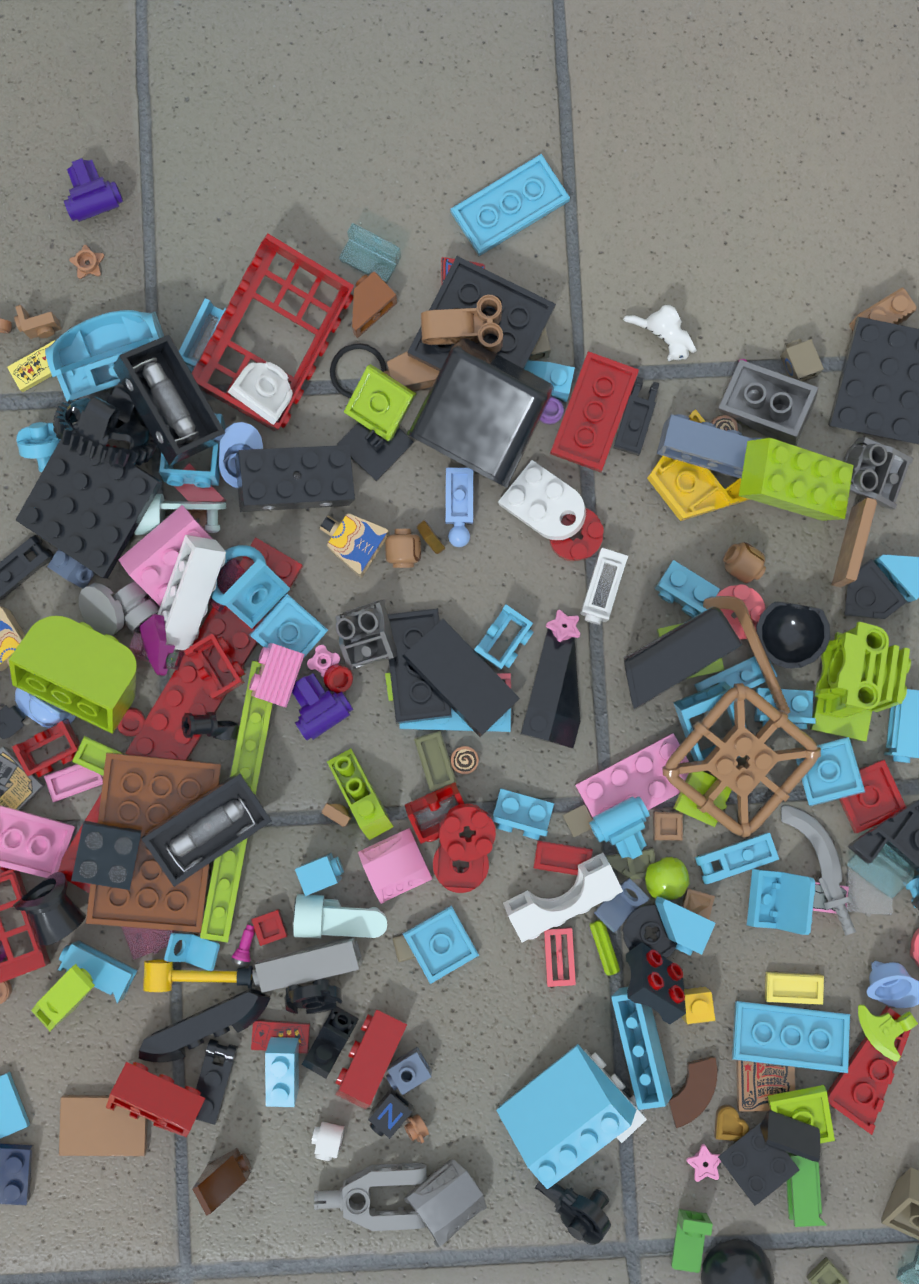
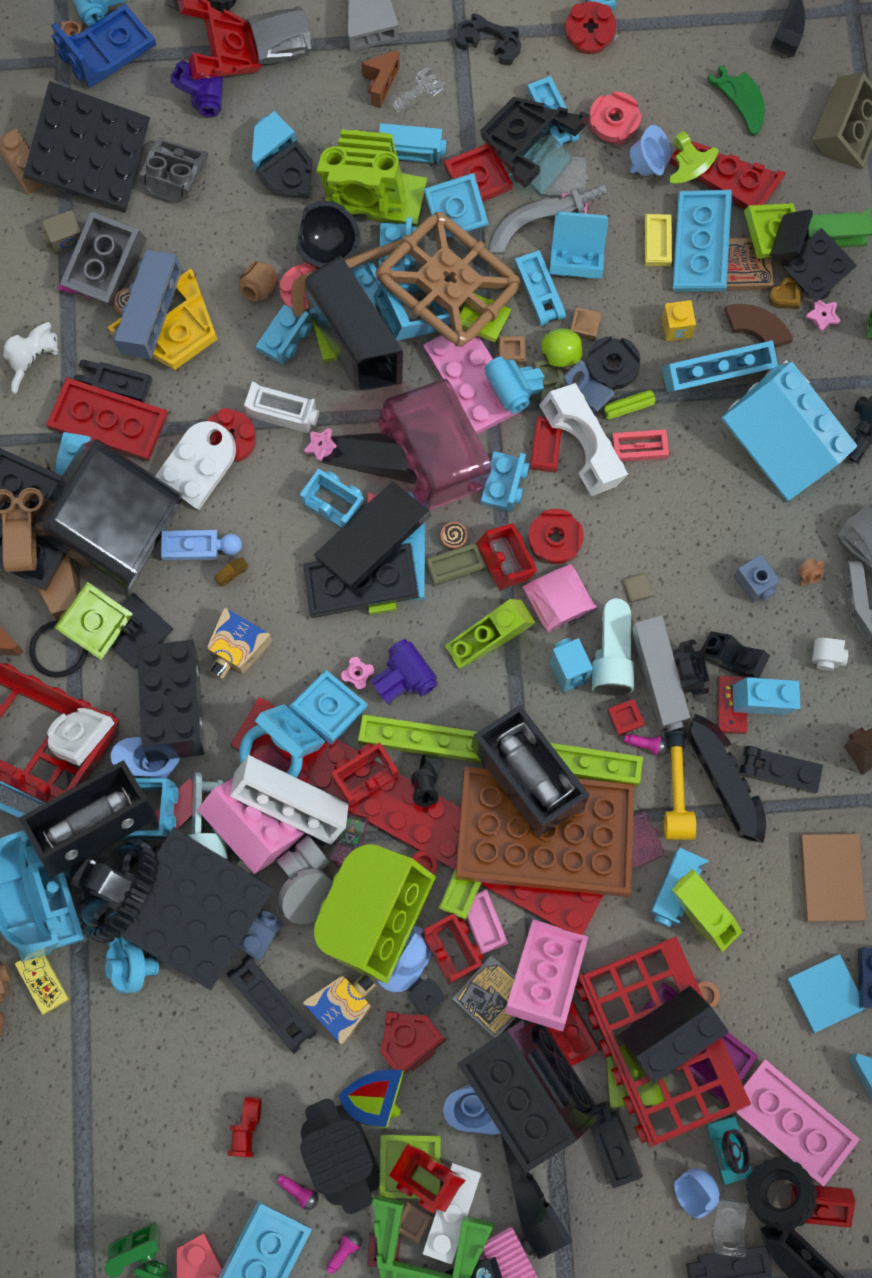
camera: 90 degrees left, 10 degrees down
(51, 910) = (618, 931): black hat -> none
(106, 855) = (560, 869): black brick -> none
(154, 642) = (340, 831): magenta slope -> none
(156, 1099) = (800, 817): red wedge -> none
(193, 951) = (653, 789): medium azure bracket -> none
(276, 674) = (372, 711): bright pink brick -> none
(337, 813) = (510, 654): medium nougat tile -> none
(338, 678) = (374, 657): red tile -> none
(365, 635) = (330, 629): flat silver slope -> none
(370, 1059) = (750, 614): red wedge -> none
(390, 1114) = (799, 596): black brick -> none
(403, 548) = (243, 596): medium nougat head -> none
(440, 944) = (634, 554): medium azure tile -> none
(478, 844) = (530, 511): red plate -> none
(557, 743) = (436, 443): none -> clear pink windscreen
(578, 820) = (509, 430): dark tan piece -> none
(656, 983) = (659, 349): black brick -> none
(684, 927) = (606, 328): medium azure slope -> none
(796, 479) = (180, 230): lime brick -> none
(854, 542) = (240, 183): medium nougat tile -> none

